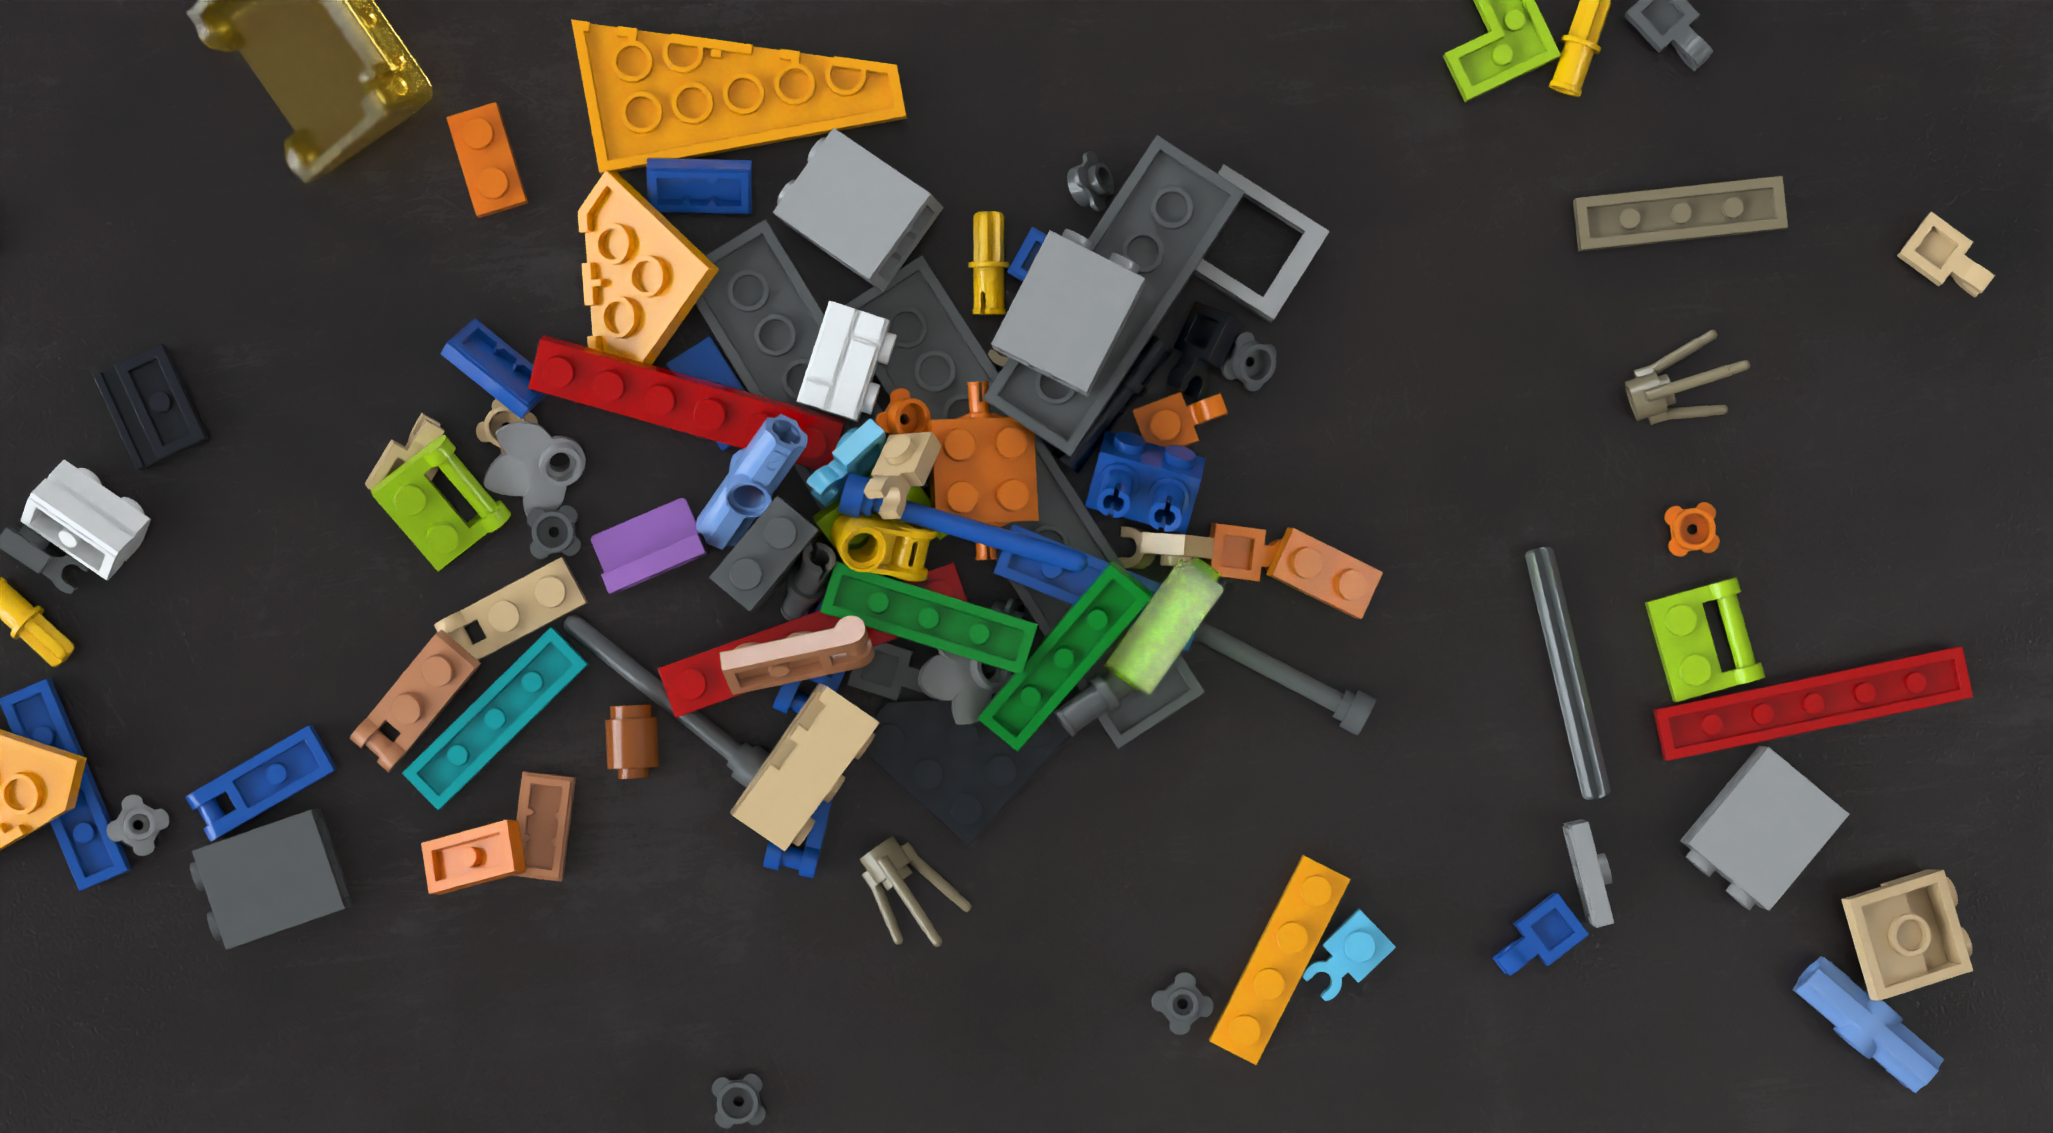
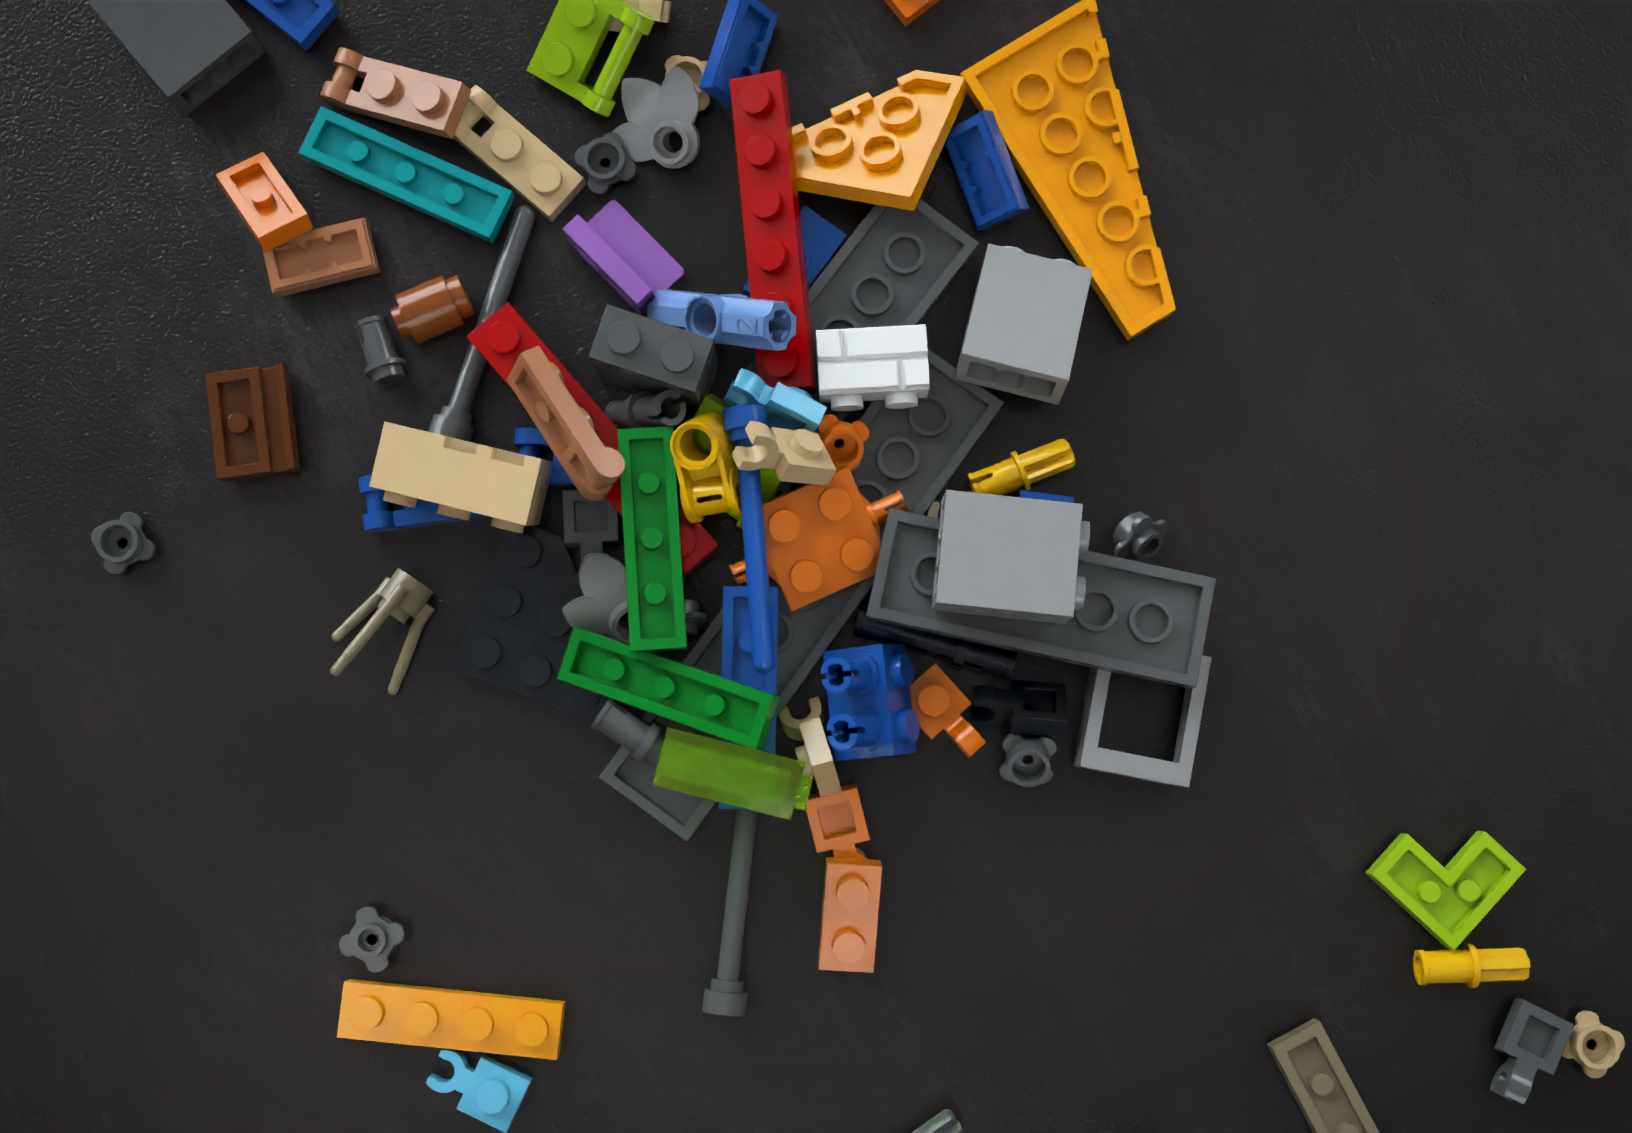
camera: 65 degrees right, 5 degrees down
(652, 804) = (380, 351): none -> dark grey pin
(674, 943) = (252, 422): none -> reddish brown plate

